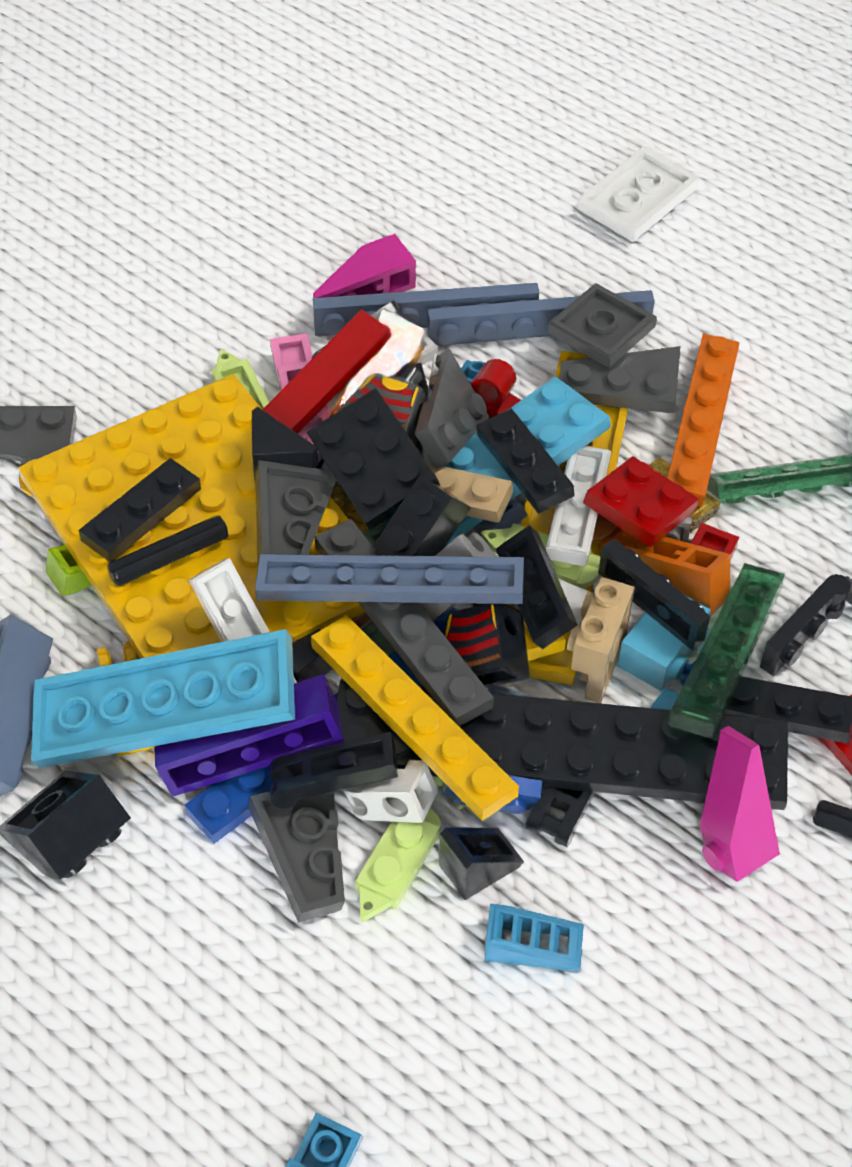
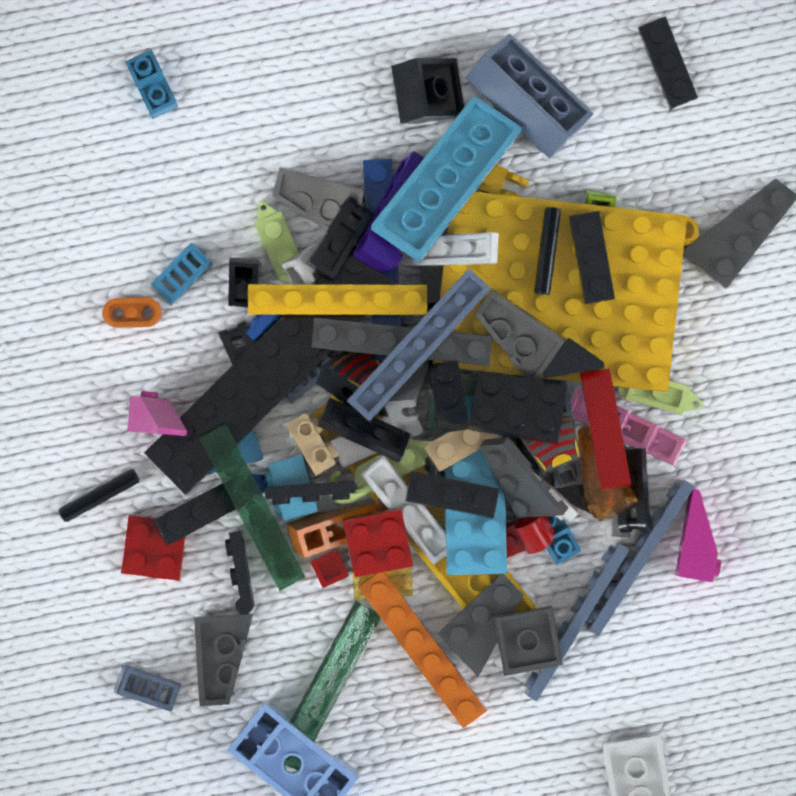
camera: 130 degrees right, 35 degrees up
(640, 958) = (132, 312): none -> orange plate

